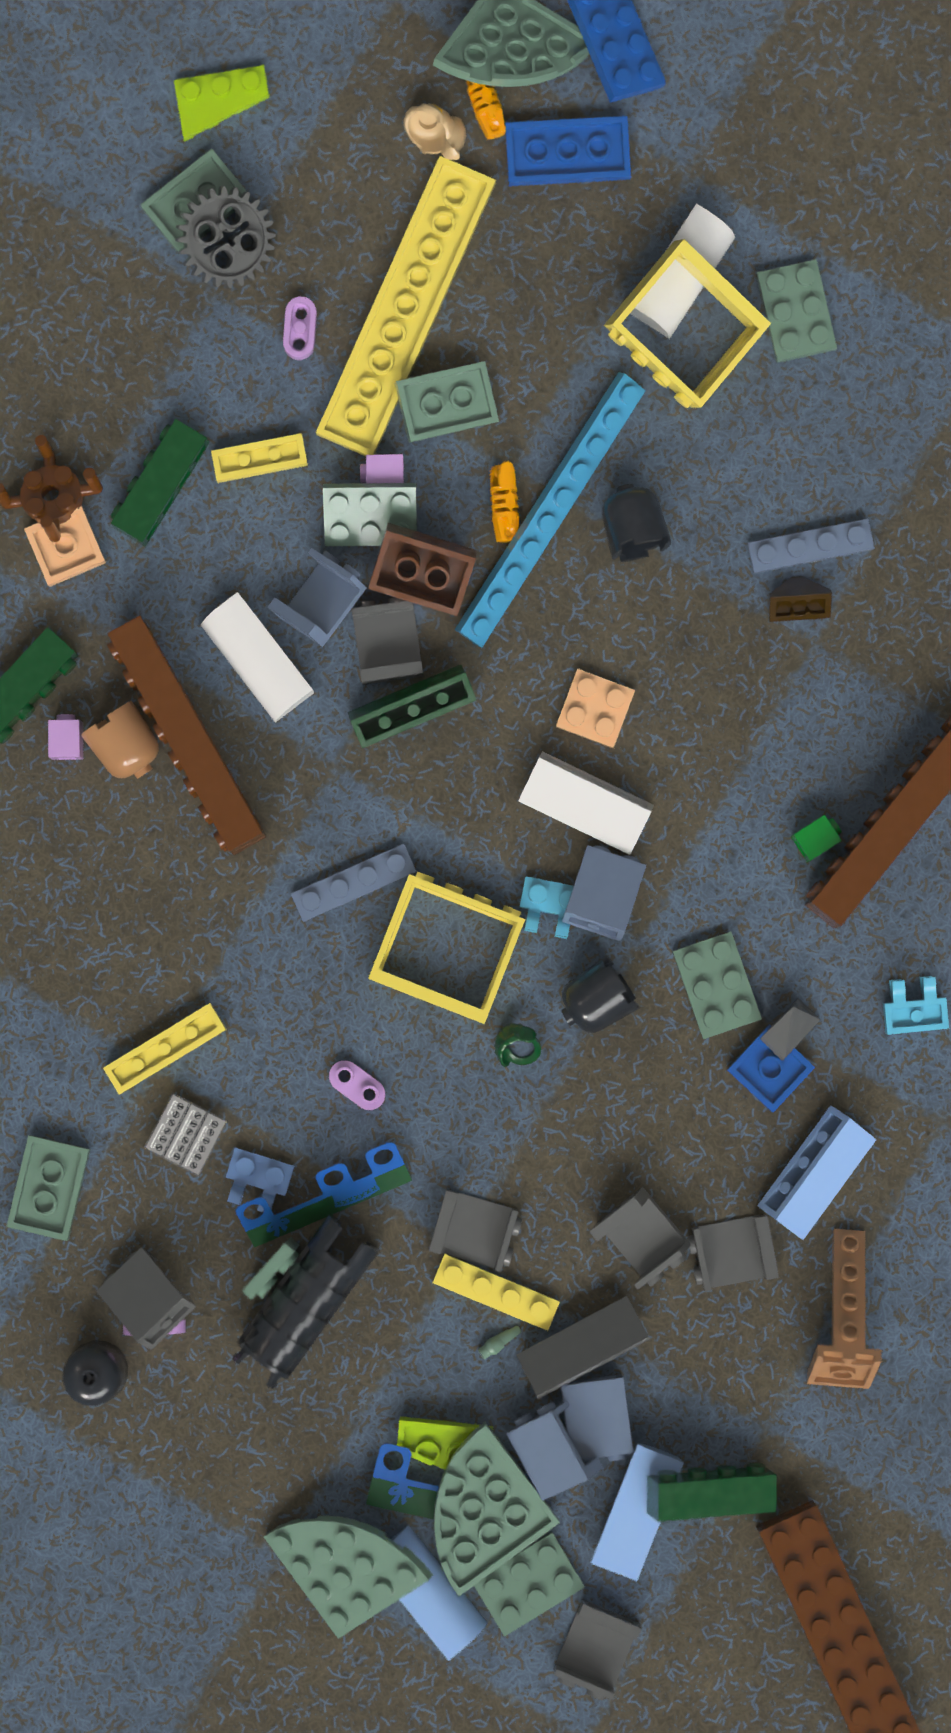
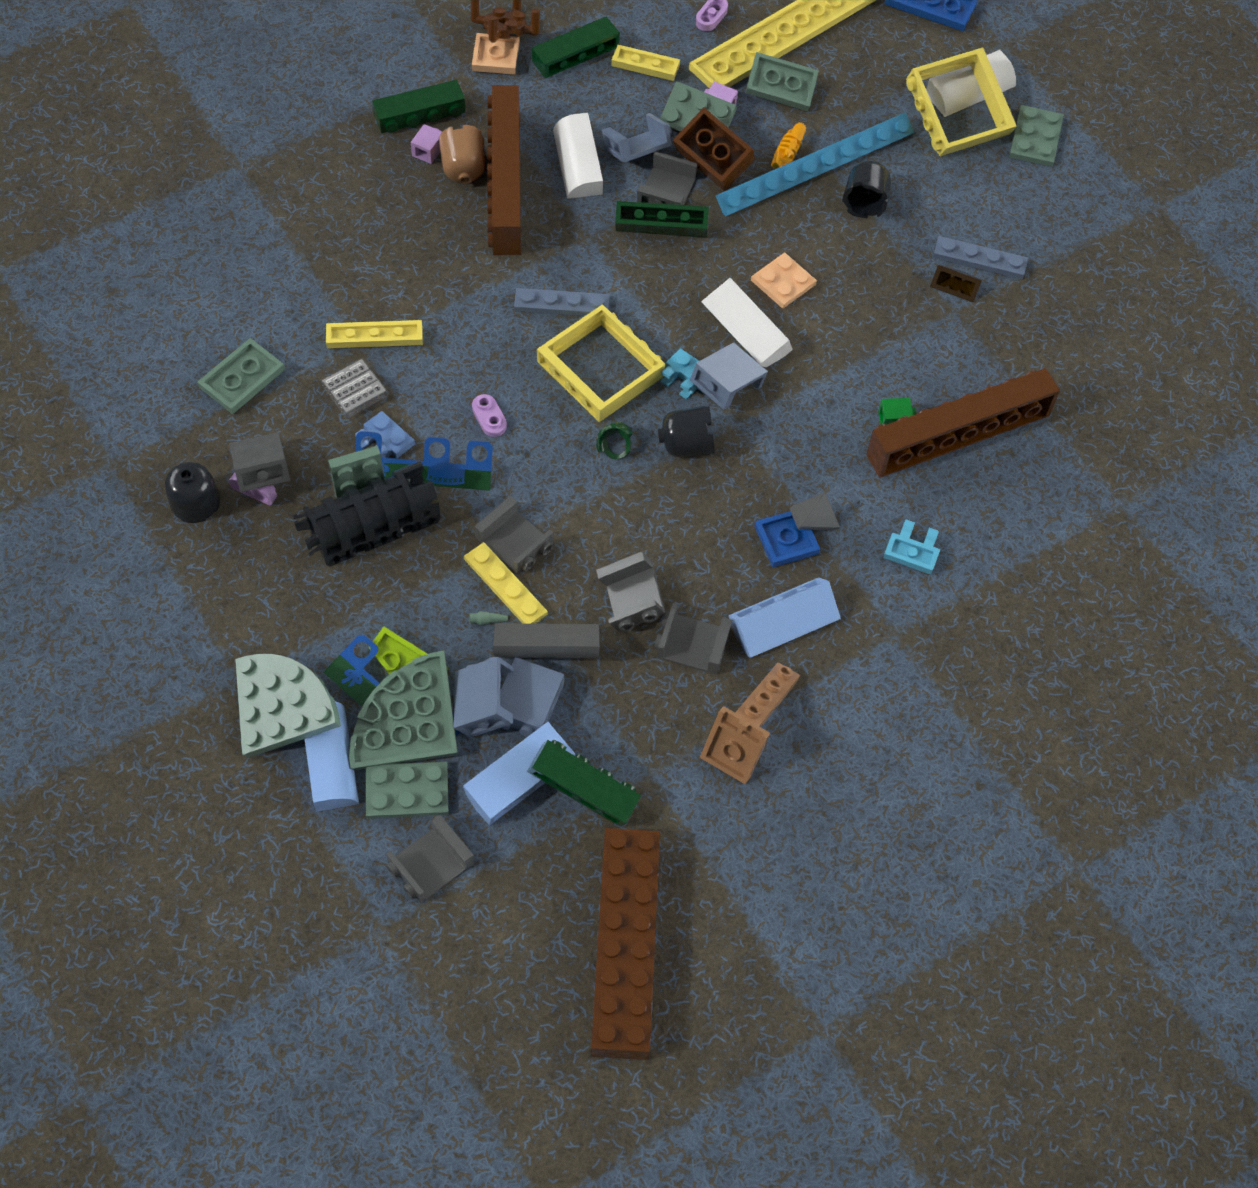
camera: 25 degrees right, 25 degrees down
(717, 985) = (776, 472): sand green plate -> none

